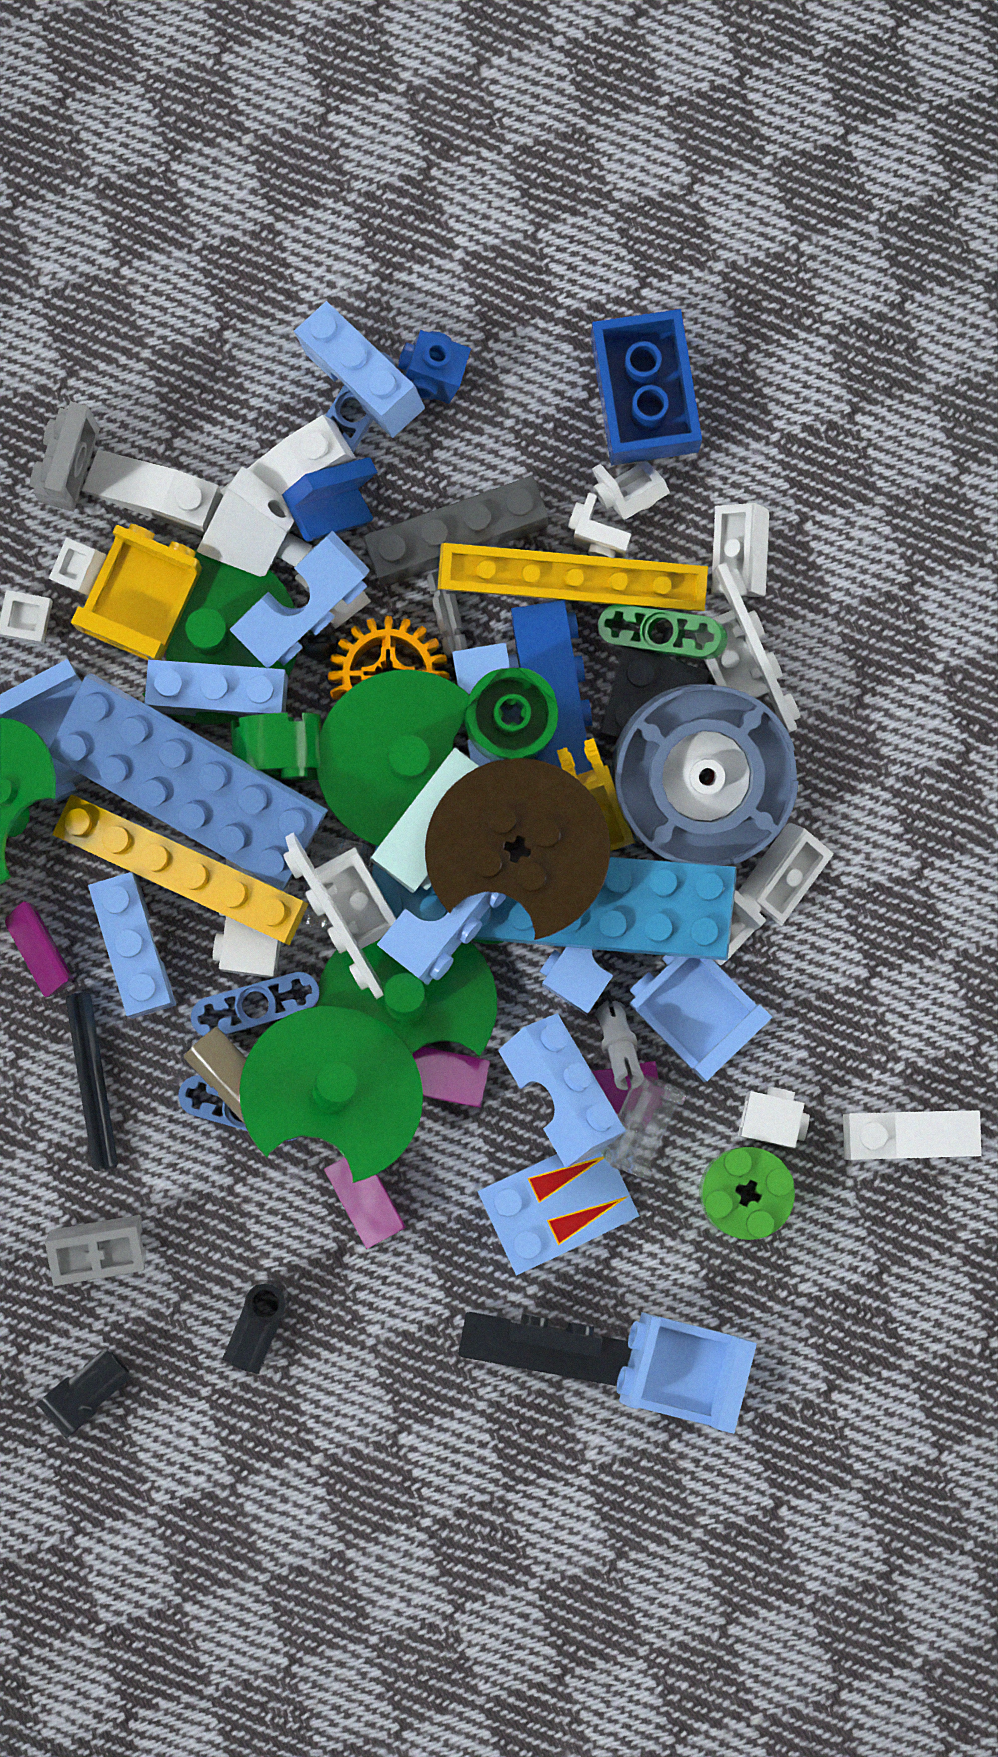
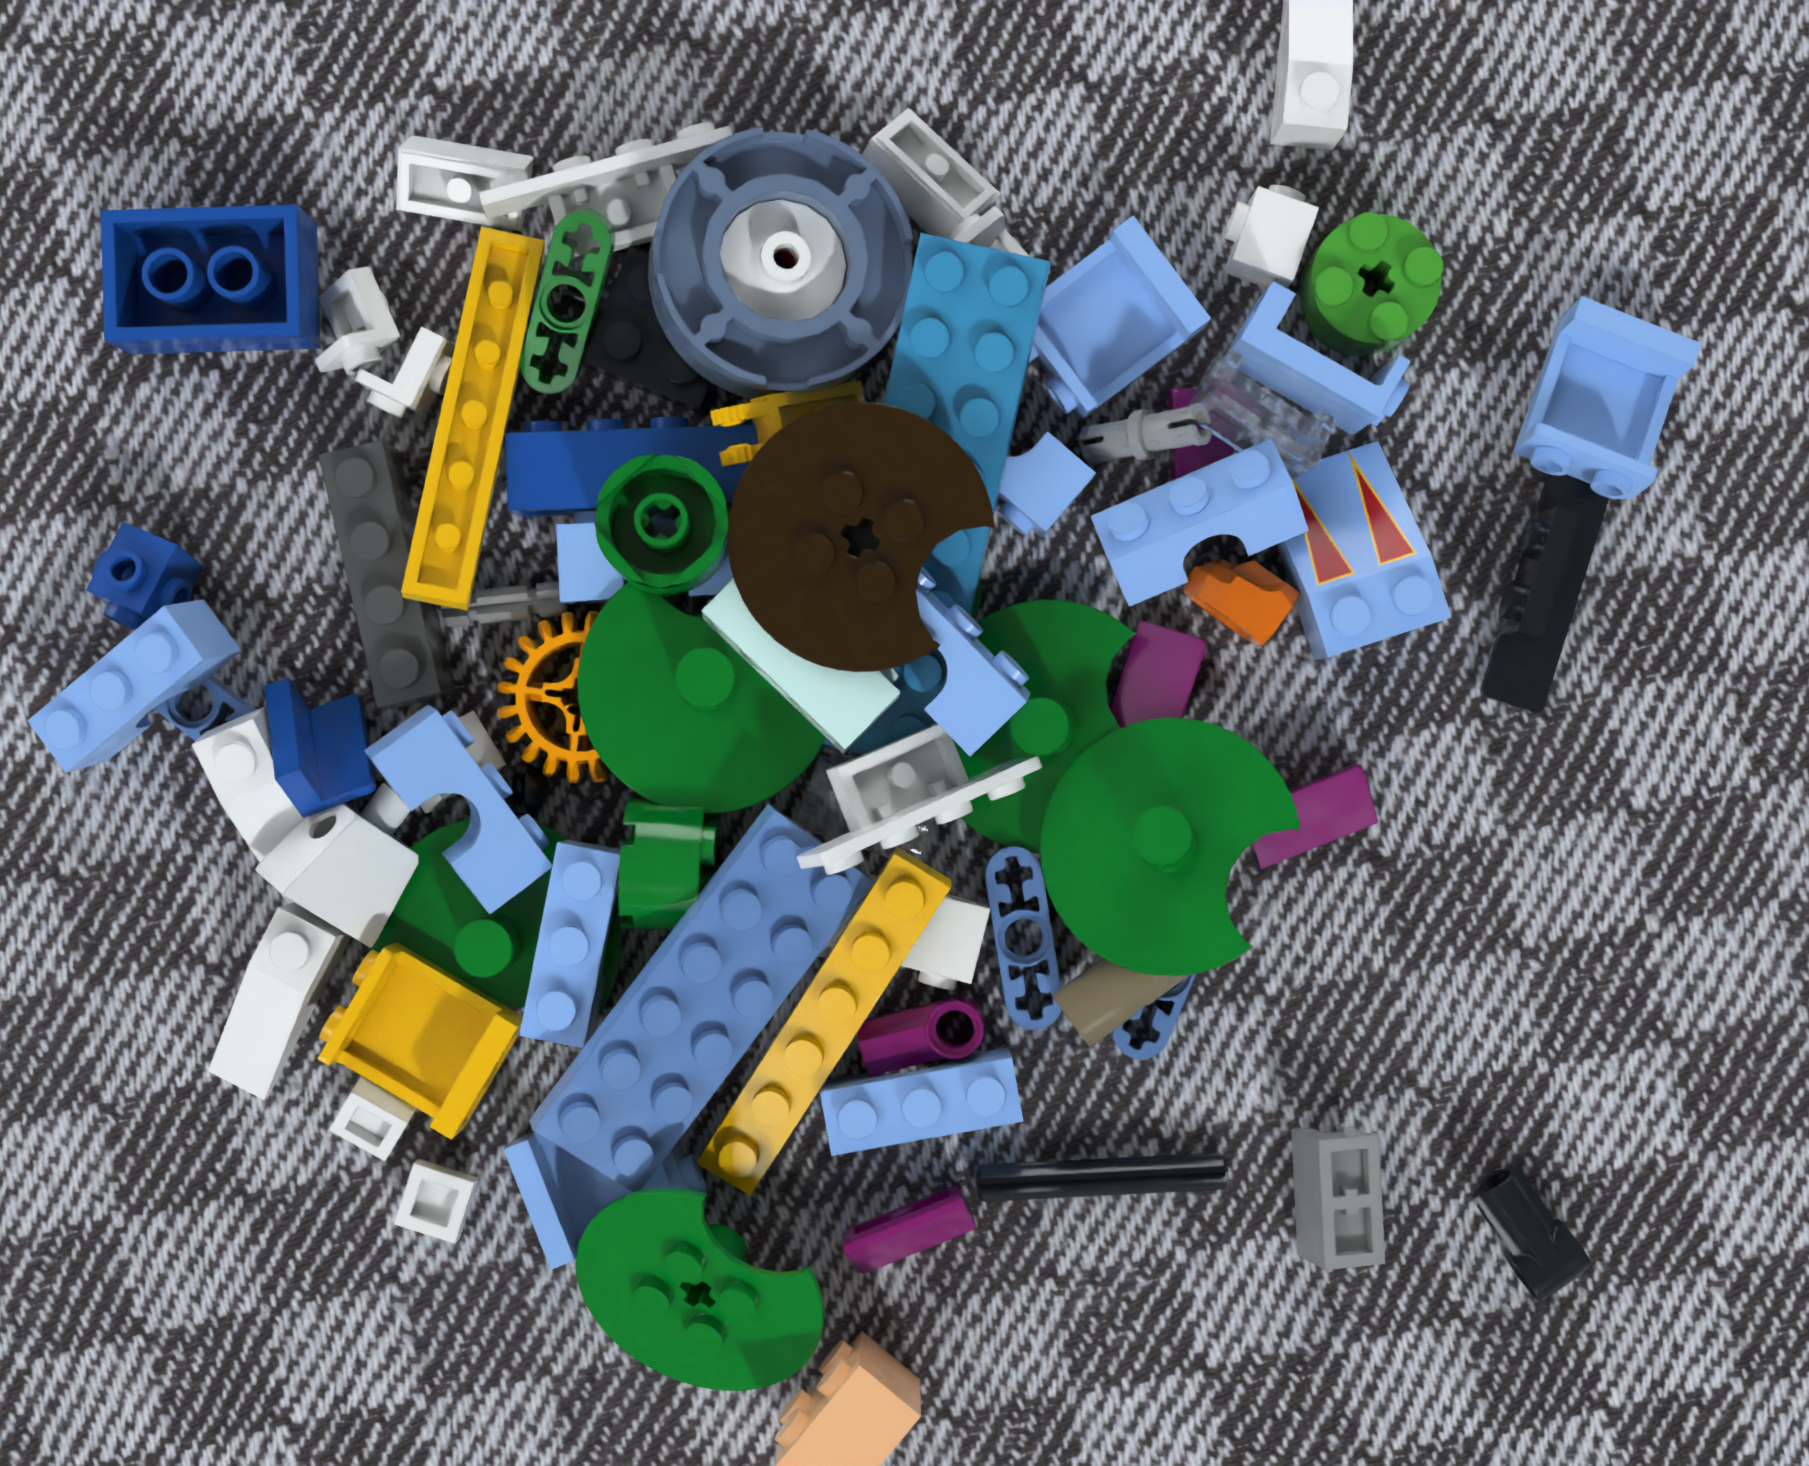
camera: 85 degrees left, 5 degrees up
(67, 457) = (205, 1114): light grey plate -> none
(178, 936) = (913, 1035): none -> magenta piece
(256, 1329) = (1470, 986): black piece -> none
(515, 1129) = (1242, 597): none -> orange rock
(674, 1151) = (1308, 375): none -> light blue panel

